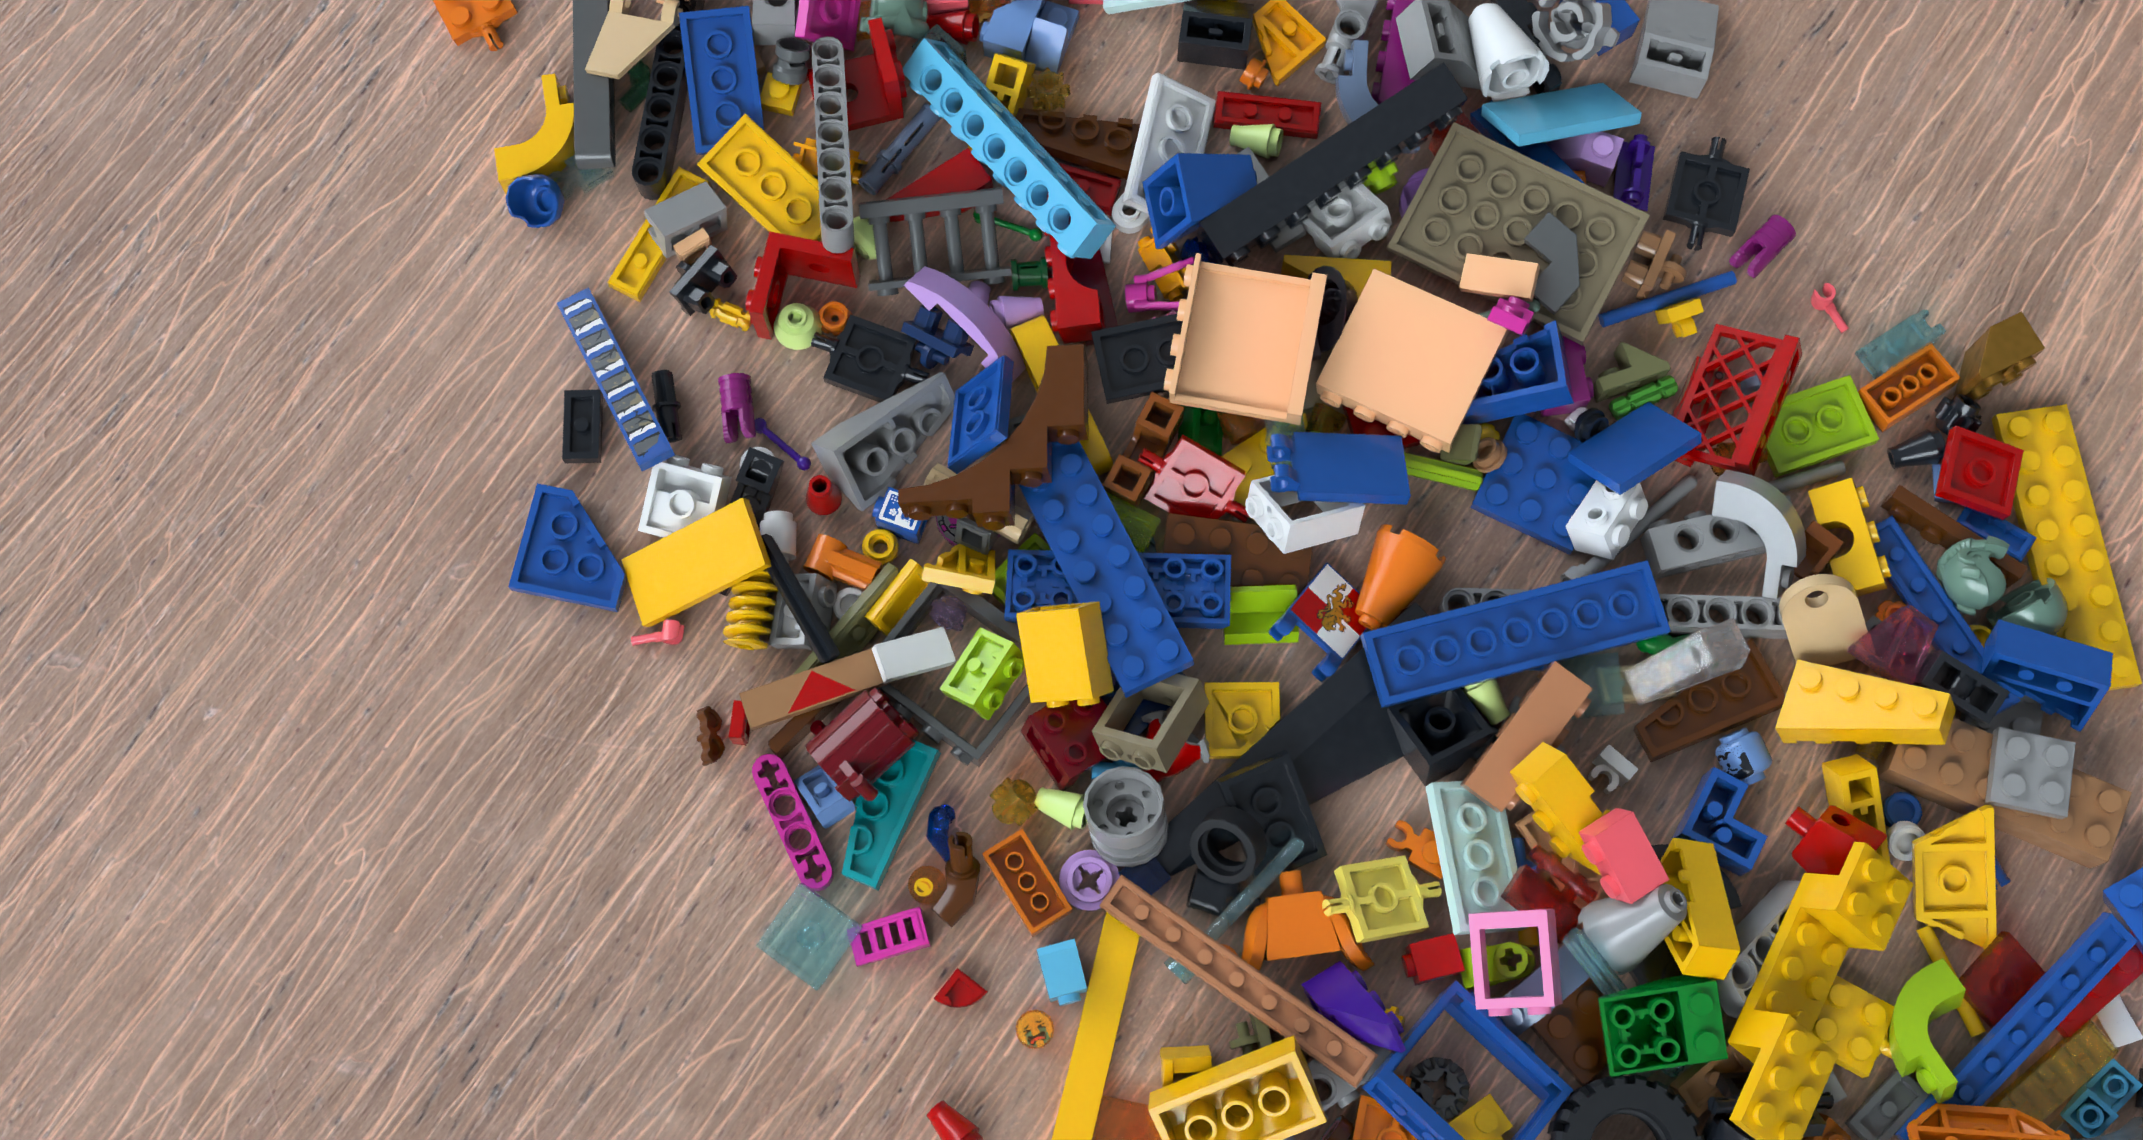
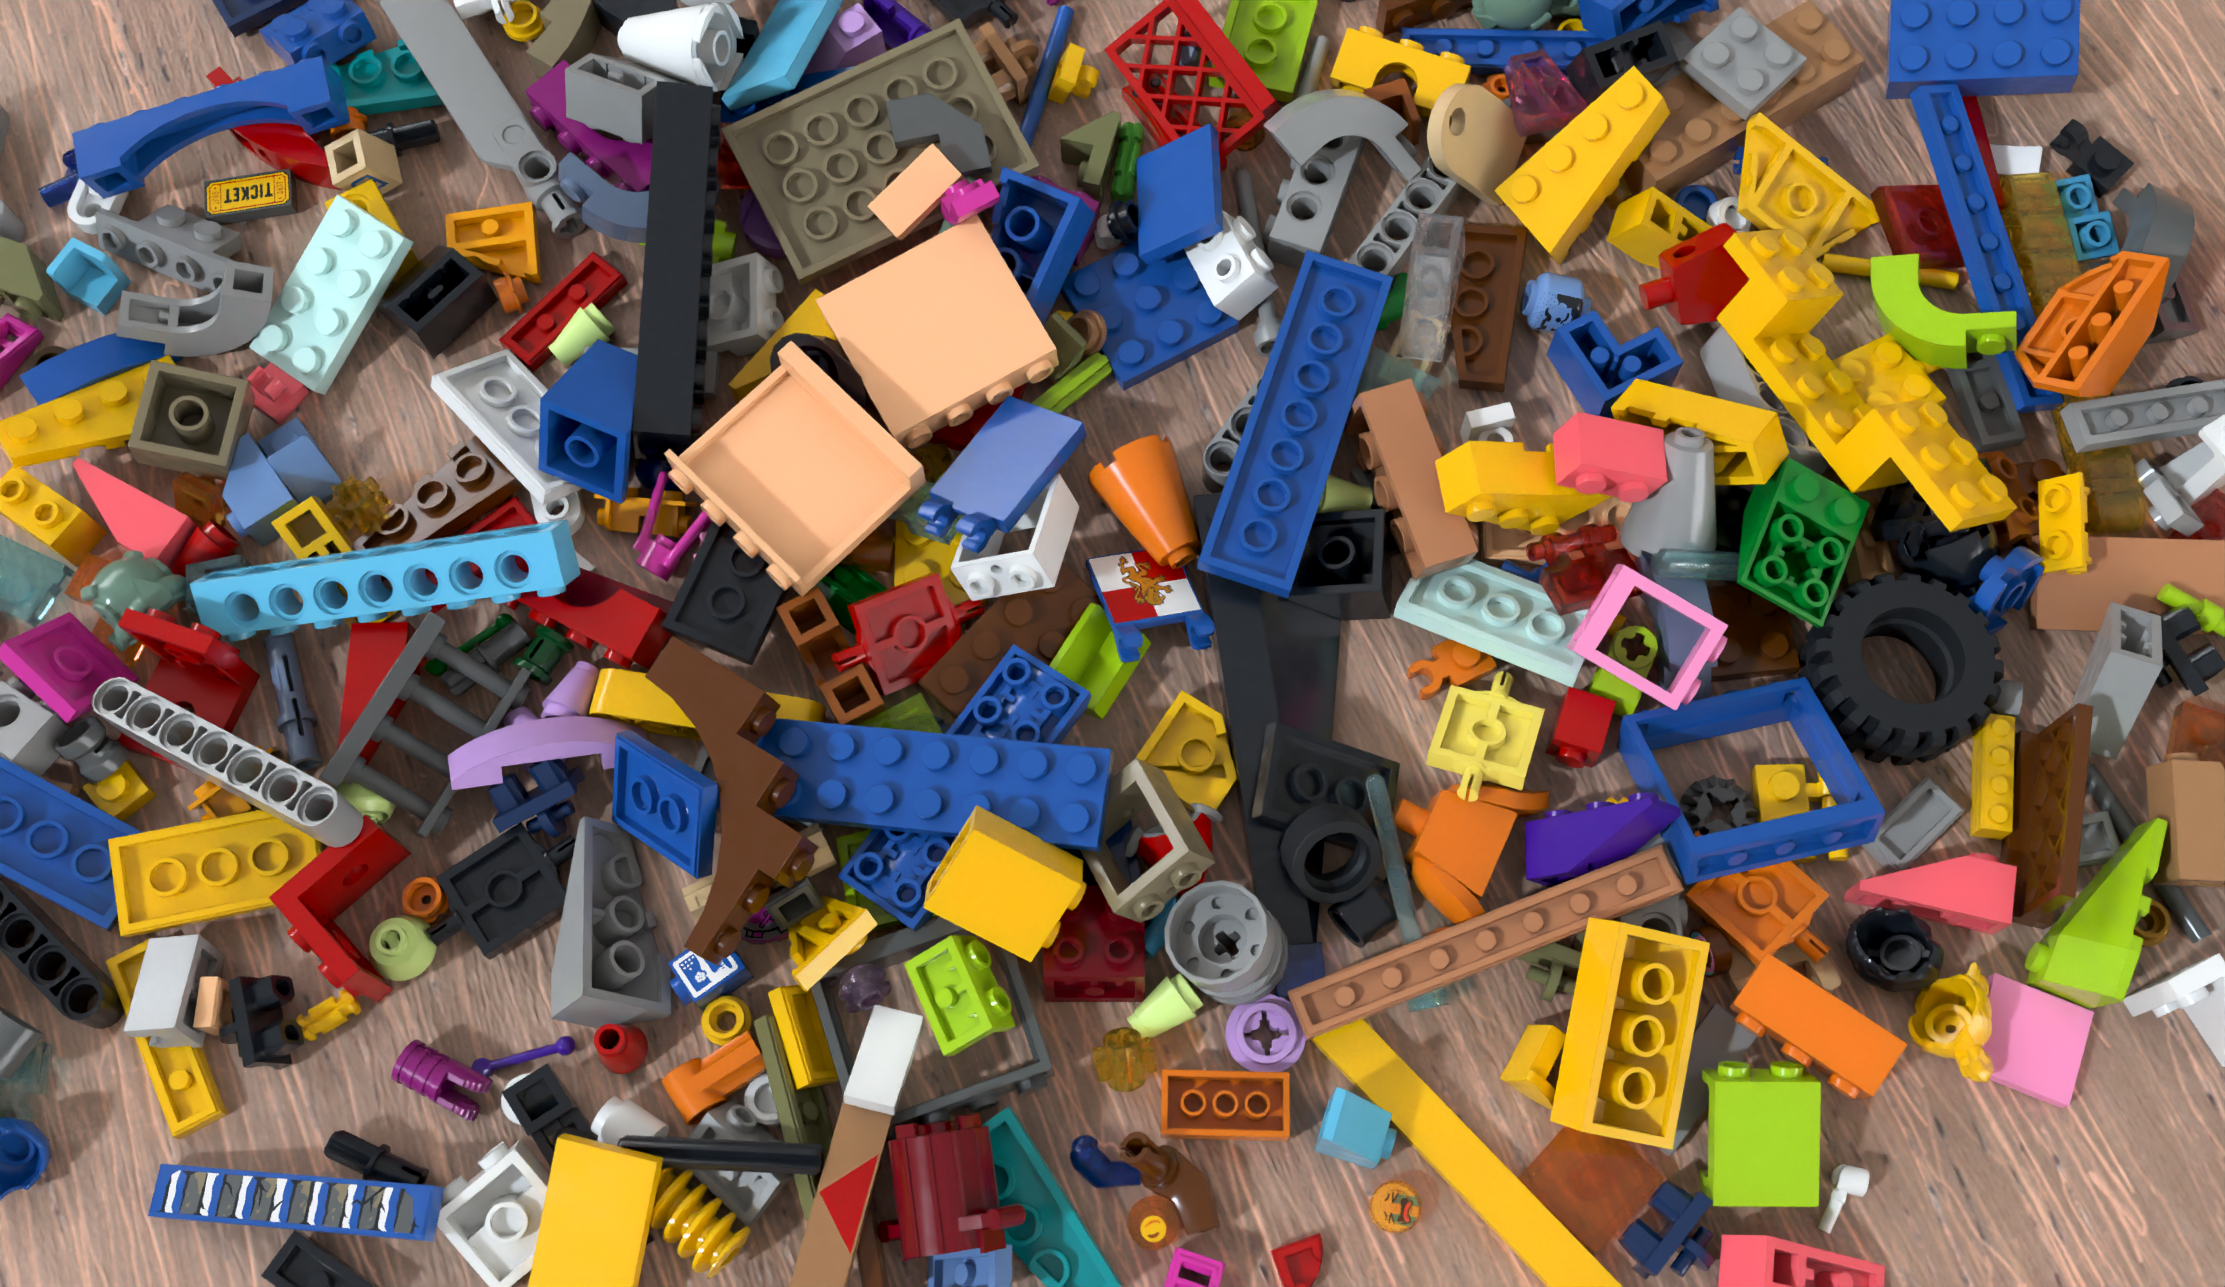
camera: 55 degrees left, 5 degrees down
(1008, 242) = (491, 653): none -> dark grey axle

